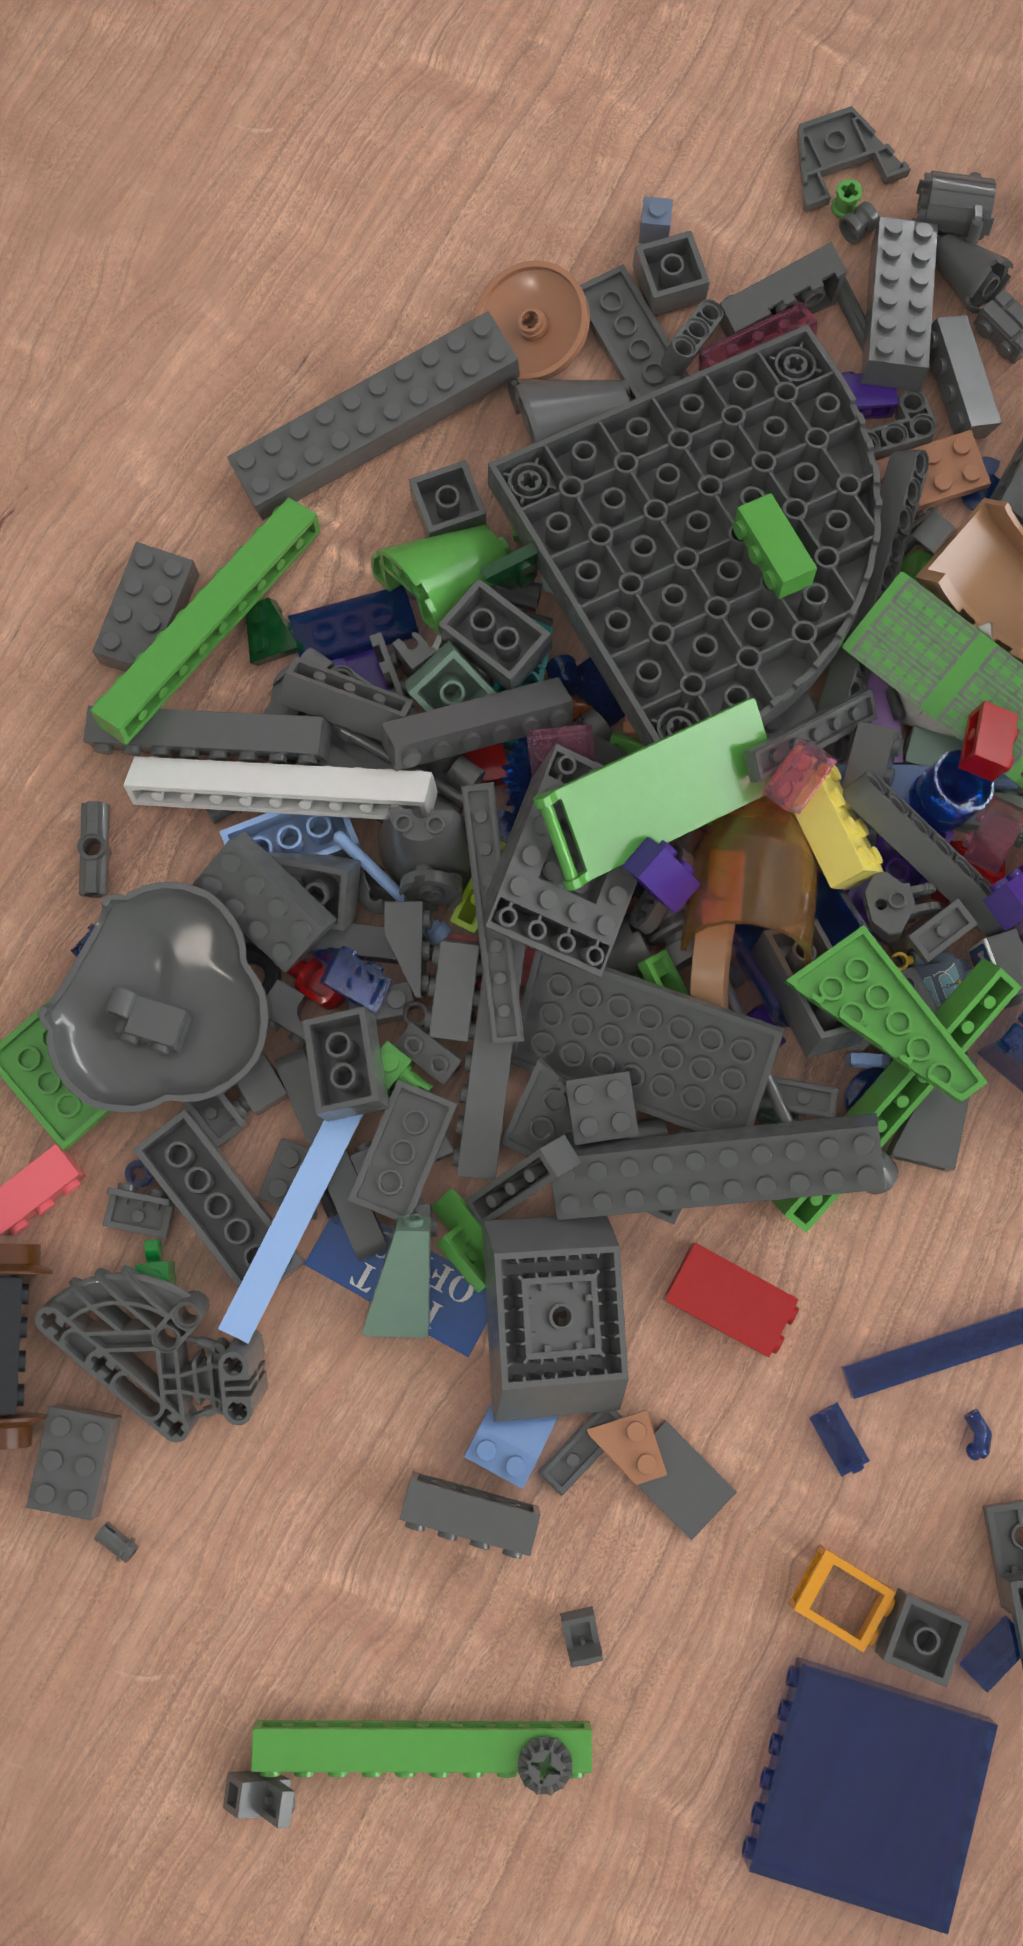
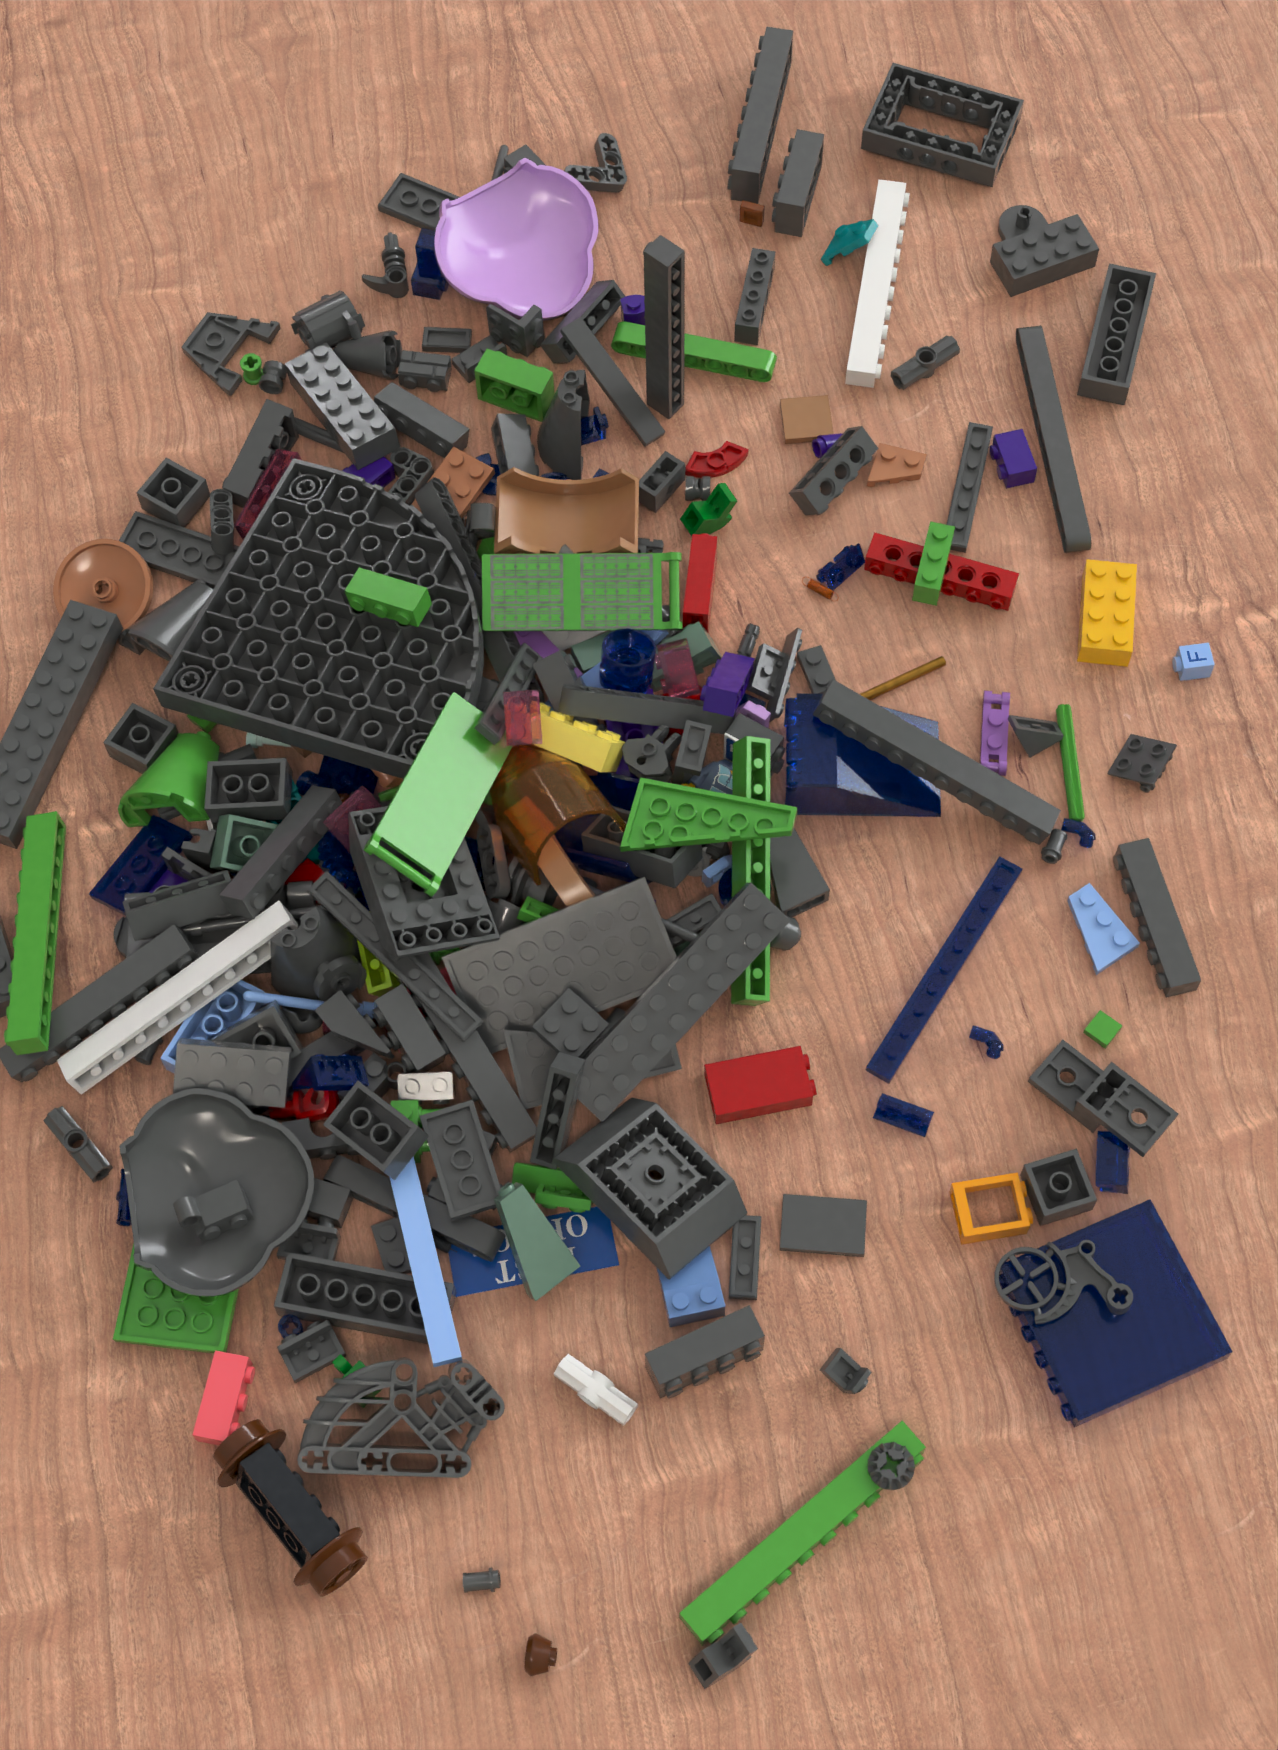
camera: 35 degrees left, 15 degrees down
(74, 1461) = (406, 1549): dark grey brick -> none
(109, 1653) = (539, 1655): none -> reddish brown cone
(269, 633) = (86, 913): dark green wing -> none
(351, 1458) = (595, 1389): none -> white piece
(513, 569) = (226, 740): dark green wing -> none
(631, 1446) = (774, 1226): nougat wing -> none
(655, 219) = (134, 469): sand blue brick -> none
(661, 874) = (485, 842): dark purple brick -> none
(868, 1741) = (1079, 1272): none -> dark grey piece
(895, 704) = (546, 641): dark grey piece -> none
(989, 741) = (624, 613): red brick -> none

